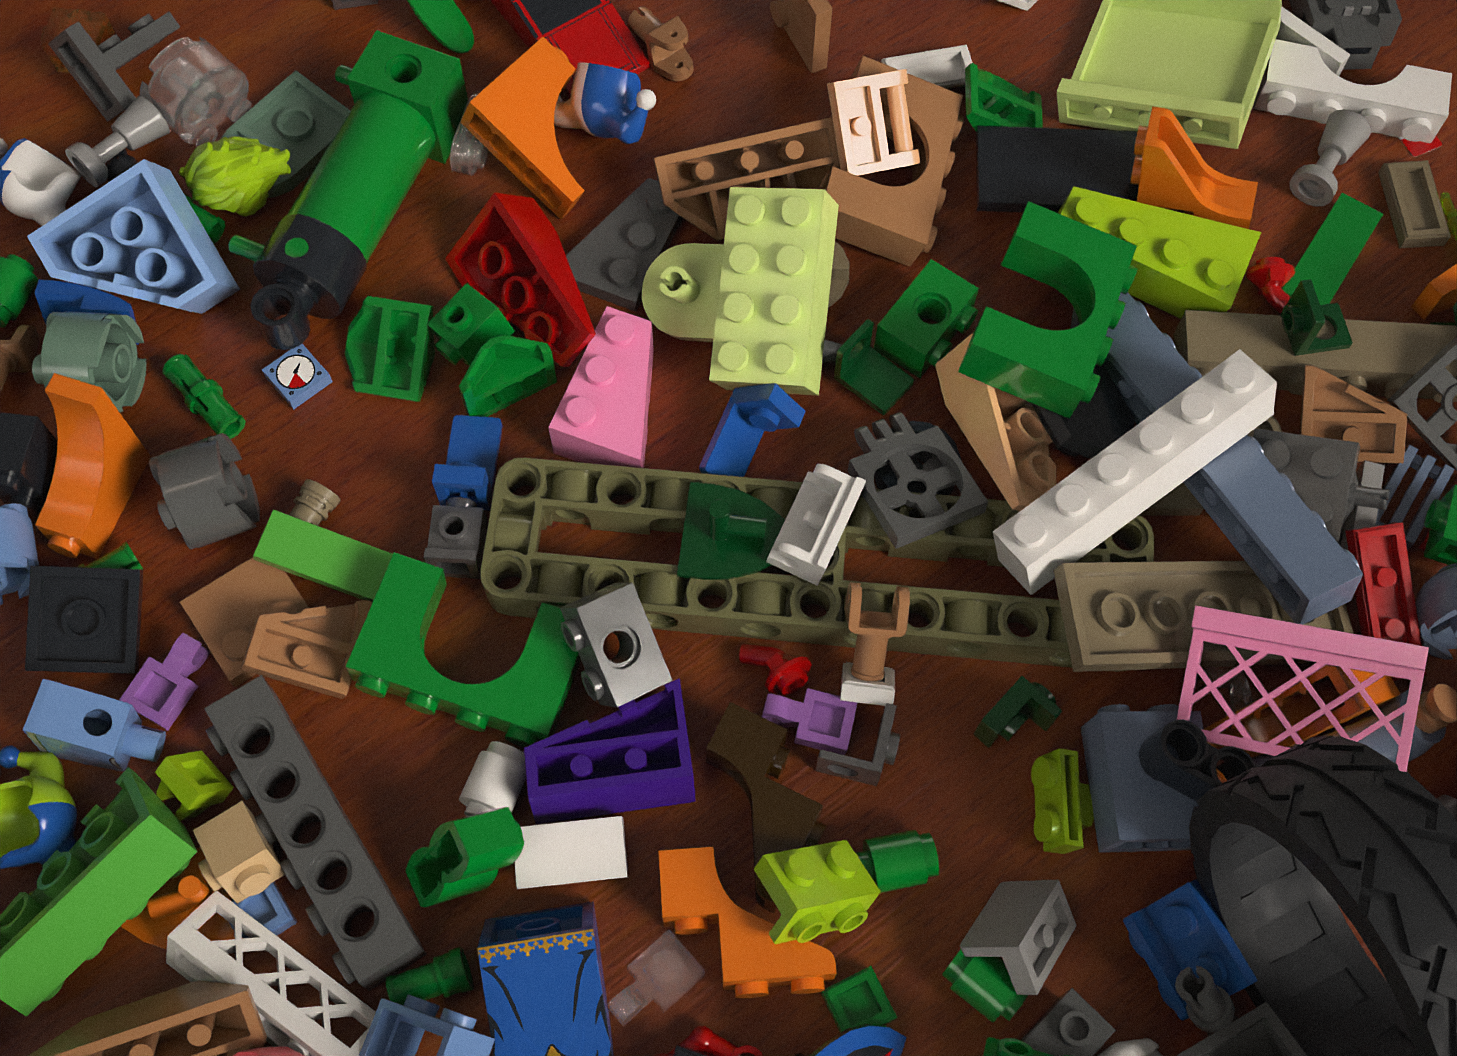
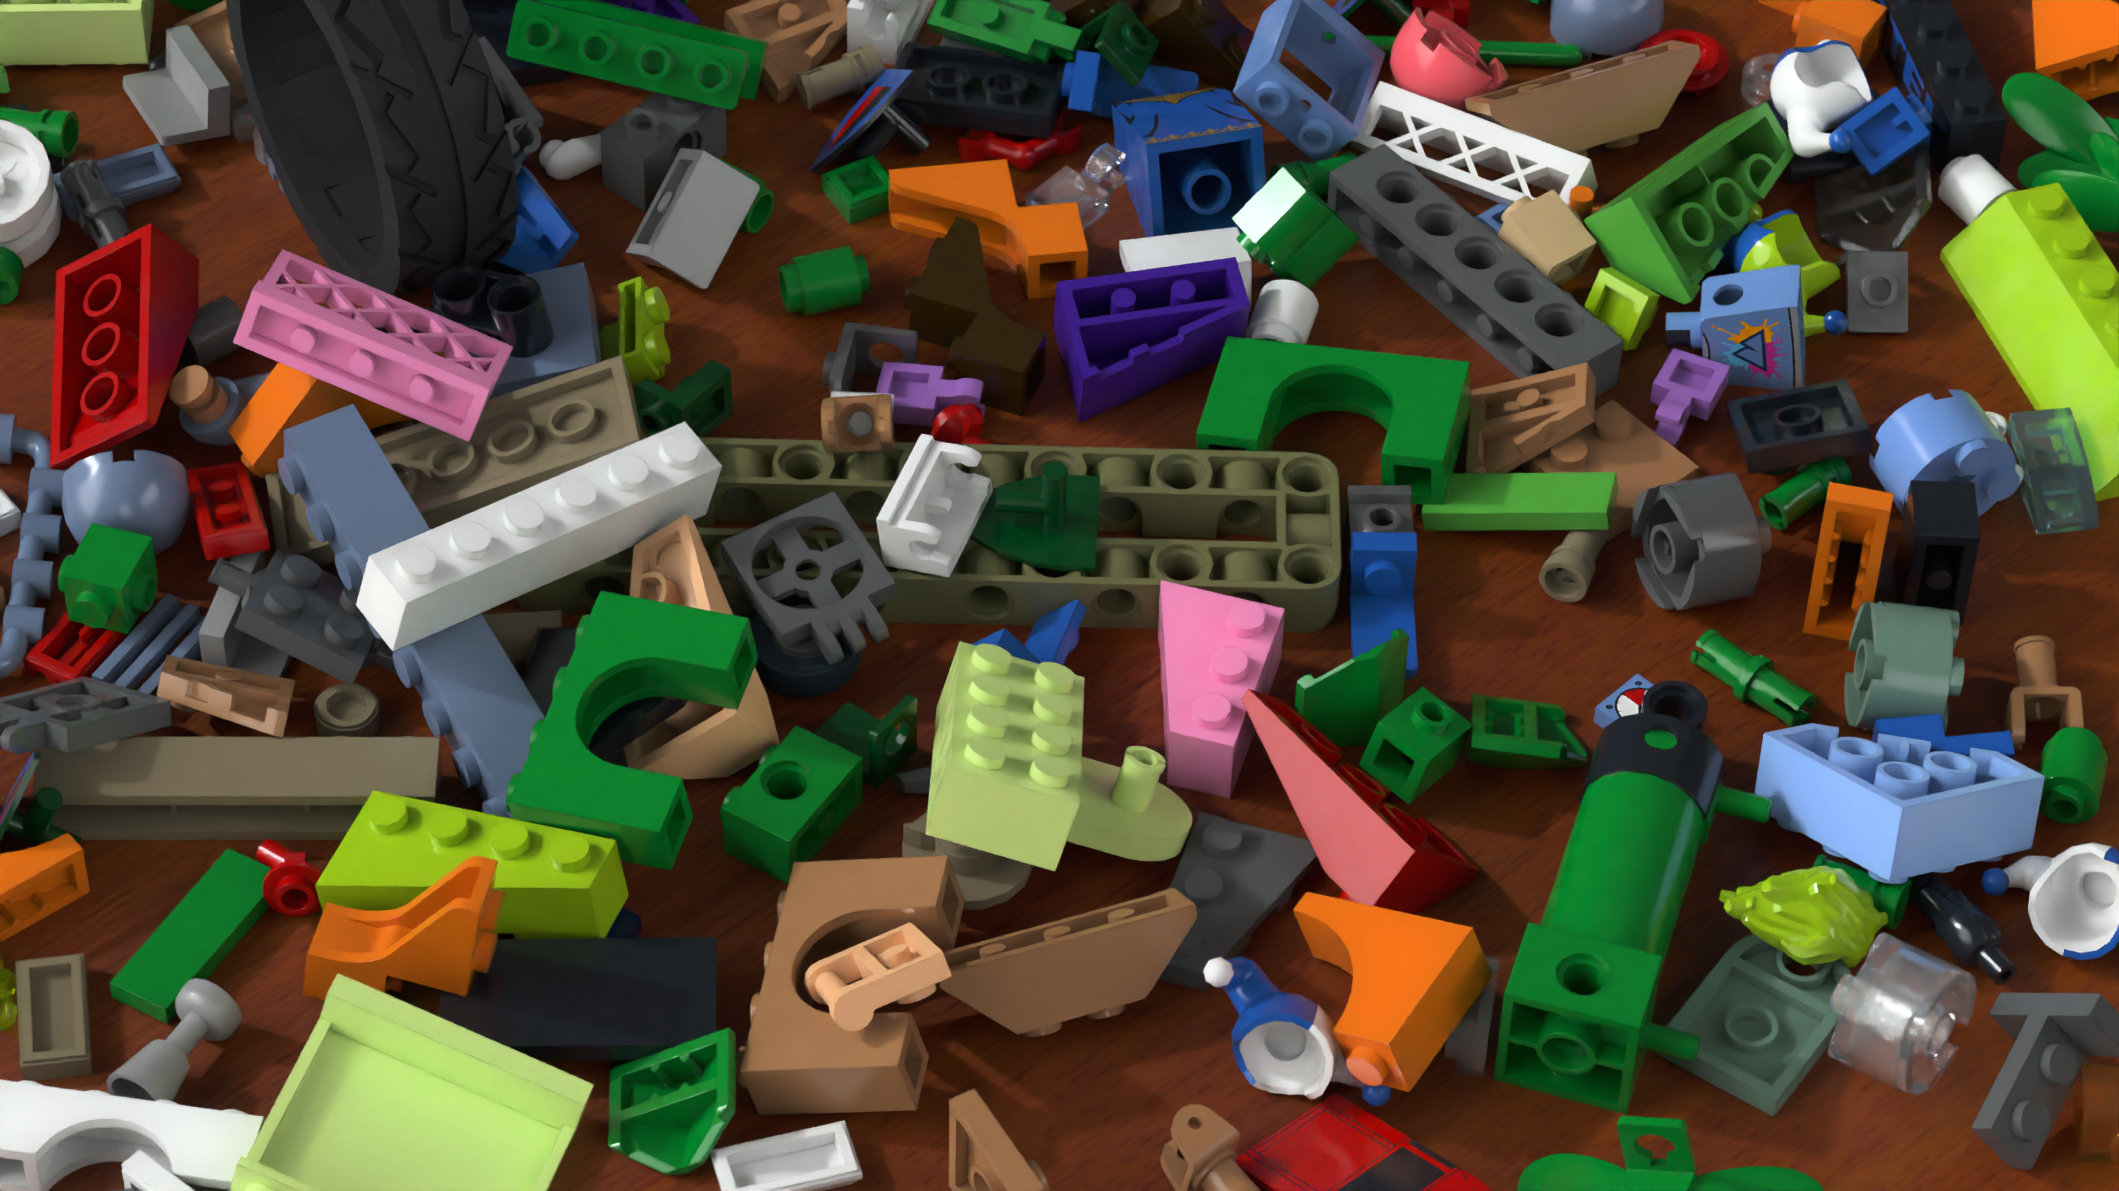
camera: 175 degrees right, 20 degrees down
(132, 130) = (2015, 909): light grey piece -> none
(639, 662) = (1163, 395): brick -> none
(816, 890) = (913, 217): lime bracket -> none
(1305, 317) = (279, 760): dark green bracket -> none

